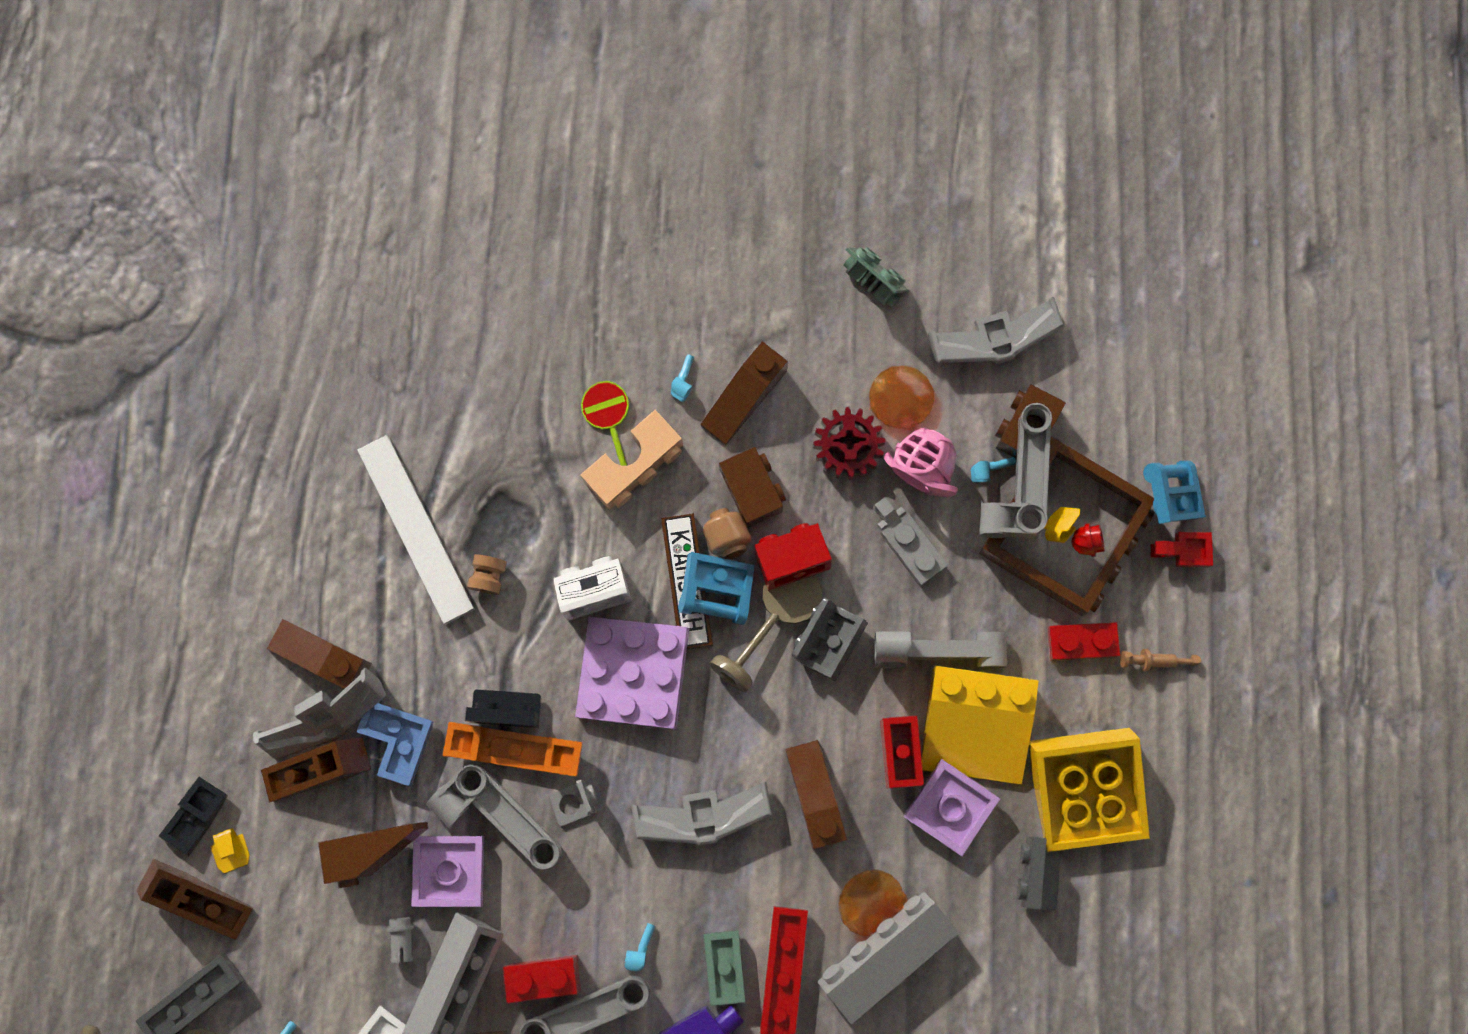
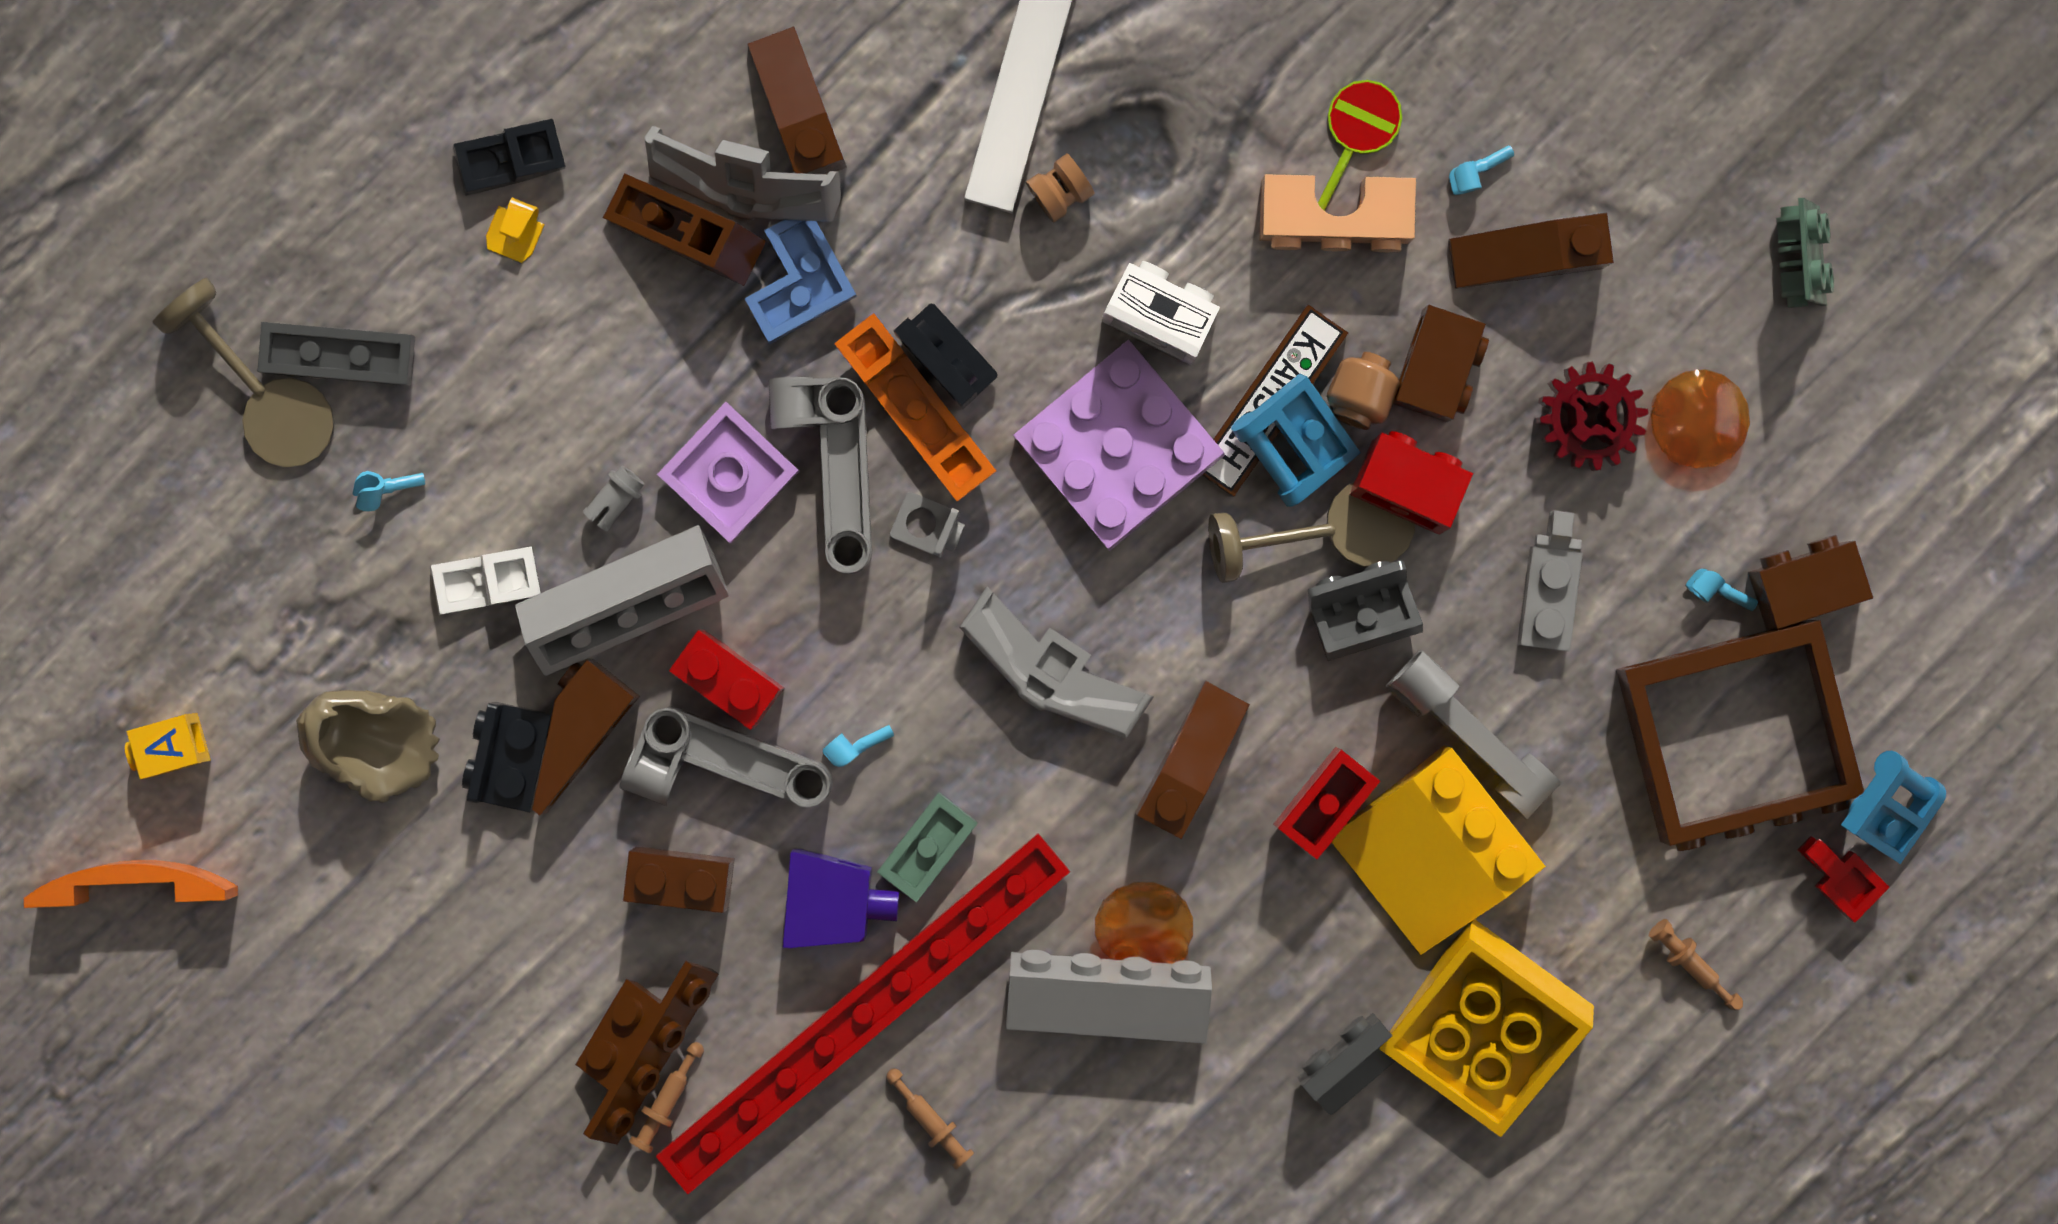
camera: 35 degrees right, 10 degrees up
(193, 899) = (431, 248): reddish brown slope -> none
(365, 853) = (656, 371): reddish brown slope -> none
(925, 462) = (1654, 518): bright pink piece -> none
(951, 807) = (1323, 909): lavender plate -> none
(996, 336) = (1871, 452): light grey plate -> none
(1031, 483) = (1748, 649): light grey piece -> none
(1059, 528) = (1729, 729): yellow piece -> none
(1083, 641) = (1635, 870): red plate -> none
(1088, 540) = (1747, 771): red plate -> none

